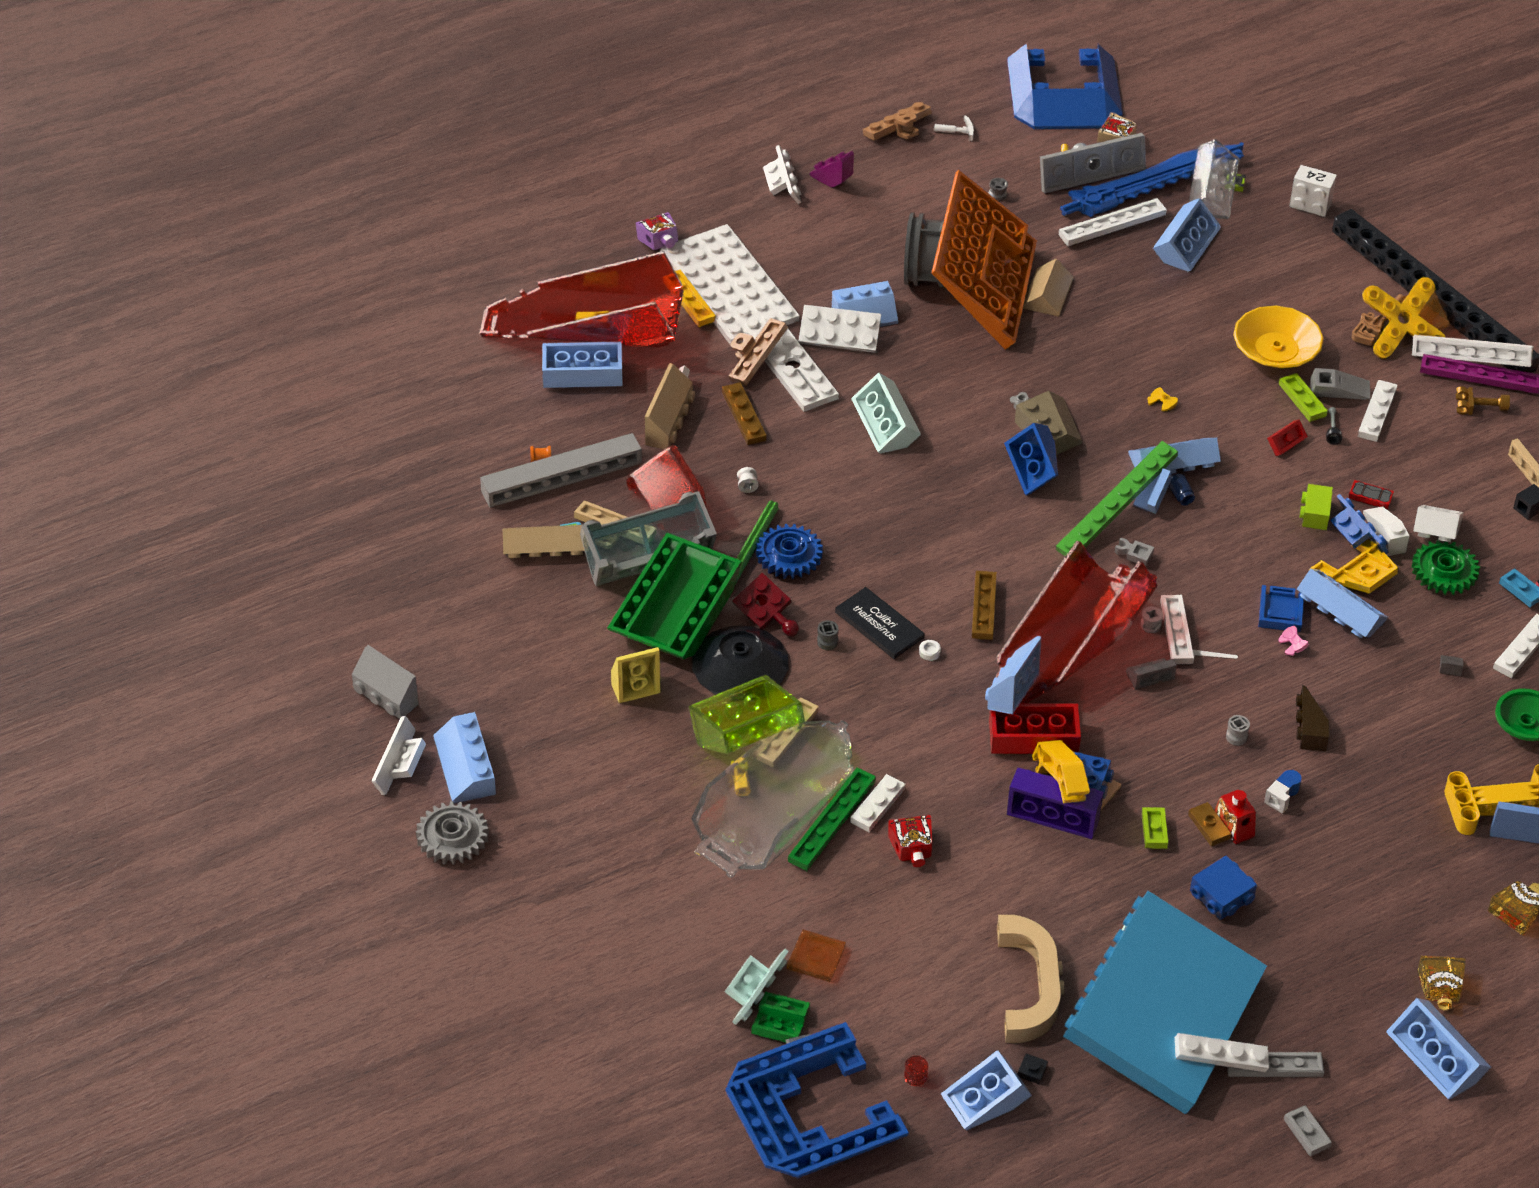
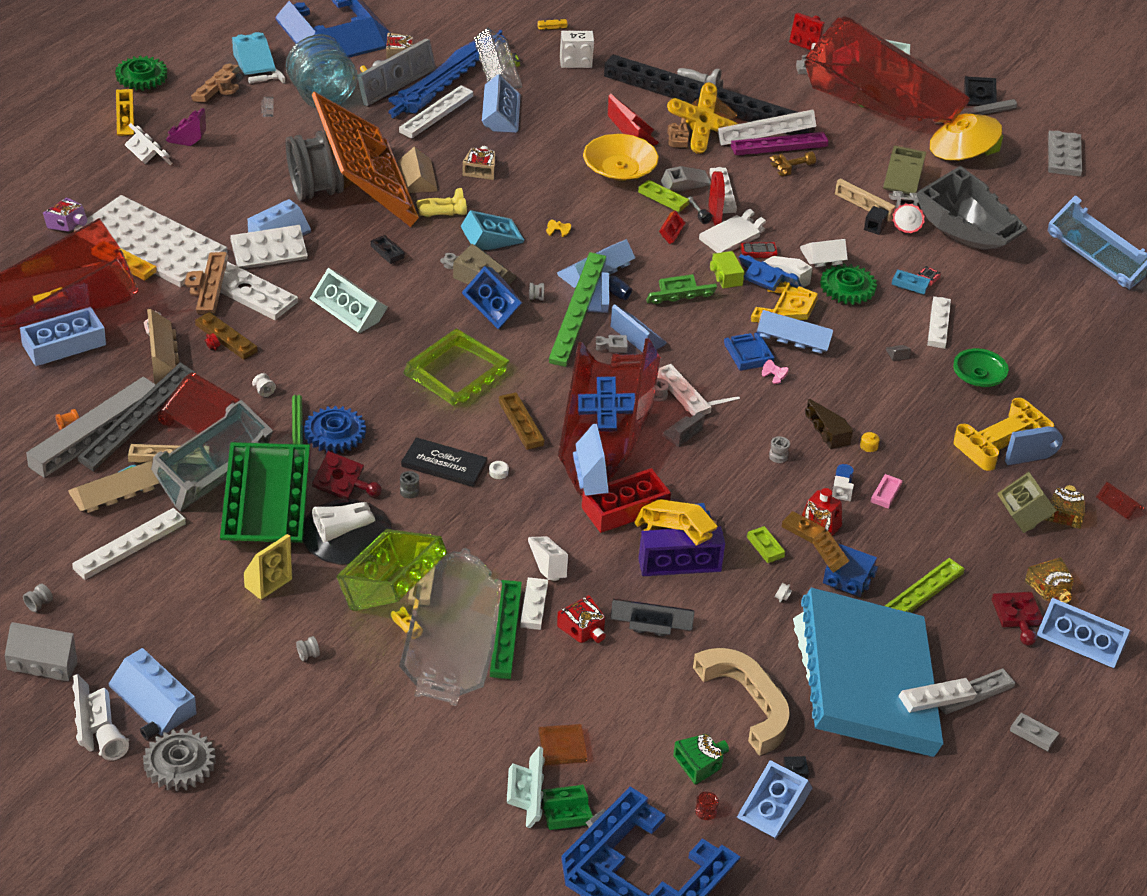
camera: 30 degrees left, 5 degrees down
(401, 793) = (111, 742): none -> white piece
(414, 627) = (40, 596): none -> light grey wheel
(443, 794) = (149, 730): none -> black piece
(528, 602) = (128, 543): none -> white plate
(600, 474) = (133, 419): none -> dark grey plate
(630, 768) = (308, 648): none -> light grey wheel
(725, 416) = (212, 341): none -> red plate
(729, 649) = (338, 520): none -> white piece
(782, 129) = (124, 111): none -> yellow slope
(825, 88) = (141, 73): none -> green gear
(919, 760) = (549, 557): none -> white slope
(935, 164) = (267, 106): none -> clear piece
(941, 1020) = (700, 756): none -> green torso
(944, 498) = (415, 366): none -> clear neon green windscreen
(953, 97) = (253, 53): none -> medium azure slope
(962, 368) = (387, 249): none -> black plate
(983, 861) = (652, 617): none -> black bracket
(997, 142) = (323, 67): none -> clear light blue wheel
(1050, 336) = (443, 206): none -> light yellow piece
(1073, 616) = (606, 403): none -> blue plate
(1084, 381) = (490, 231): none -> medium azure slope
(1089, 466) = (534, 291): none -> light grey wheel
(1121, 297) = (479, 163): none -> torso
(1139, 885) = (783, 592): none -> white plate
(1170, 544) = (636, 331): none -> medium blue slope
(1209, 859) = (830, 551): none -> pearl gold plate
(1249, 511) = (680, 287): none -> bright green bracket
(1296, 937) = (927, 586): none -> lime tile
(1311, 150) = (552, 24): none -> yellow axle
(1323, 298) = (629, 121): none -> red slope
(1328, 816) = (886, 491): none -> bright pink tile
(1346, 756) = (869, 442): none -> yellow piece
(1353, 419) = (717, 197): none -> red tile
(1358, 464) = (732, 232): none -> white tile
(1371, 1003) = (1009, 616): none -> dark red plate
(1448, 273) = (714, 78): none -> light grey piece
(1470, 885) = (1026, 502): none -> olive slope

